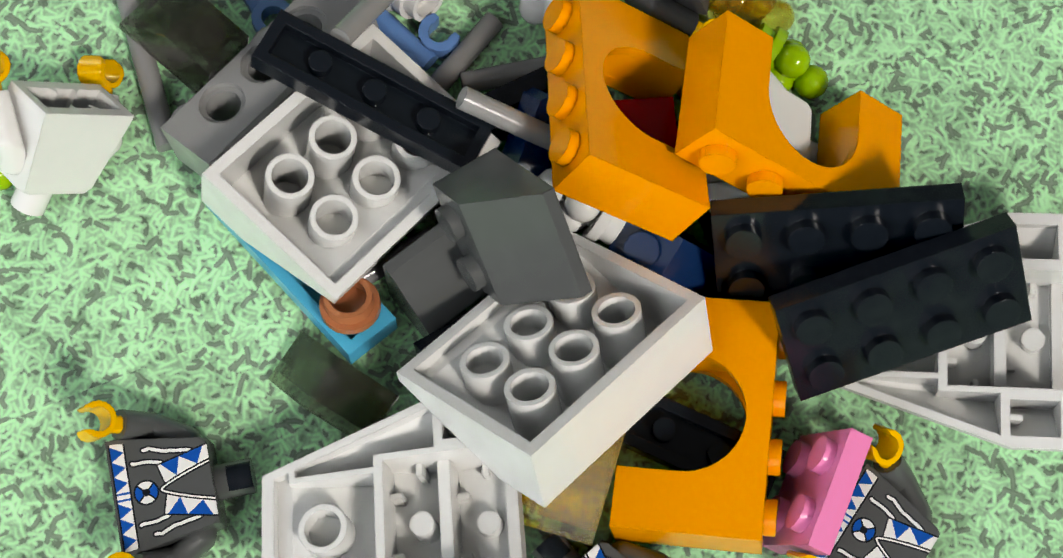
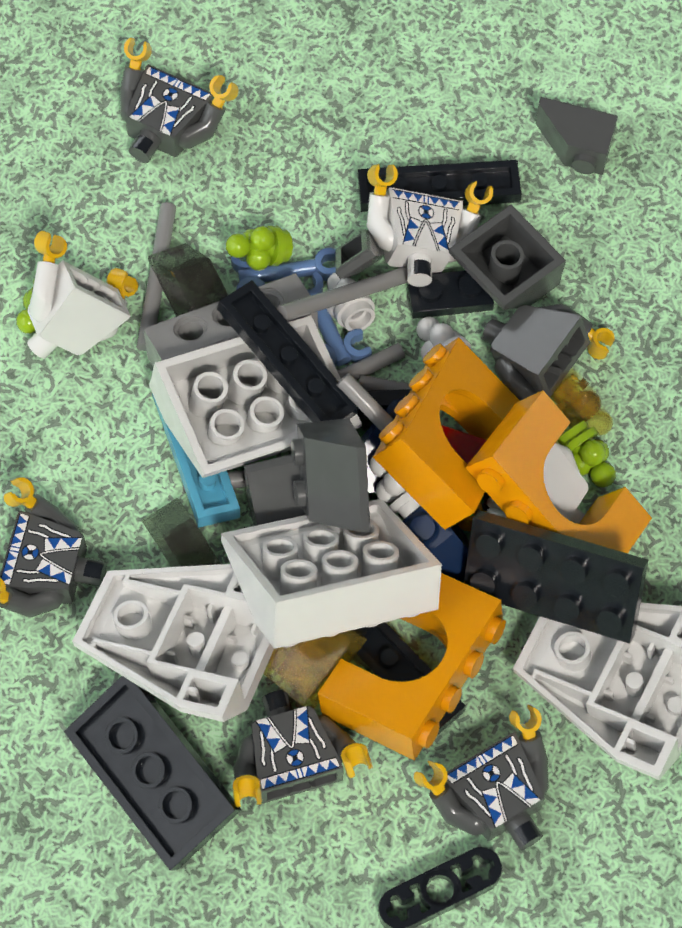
camera: 30 degrees right, 10 degrees down
(354, 310) = (213, 489): nougat plate -> none
(817, 490) = (476, 723): bright pink plate -> none
(902, 306) = (578, 631): black plate -> none

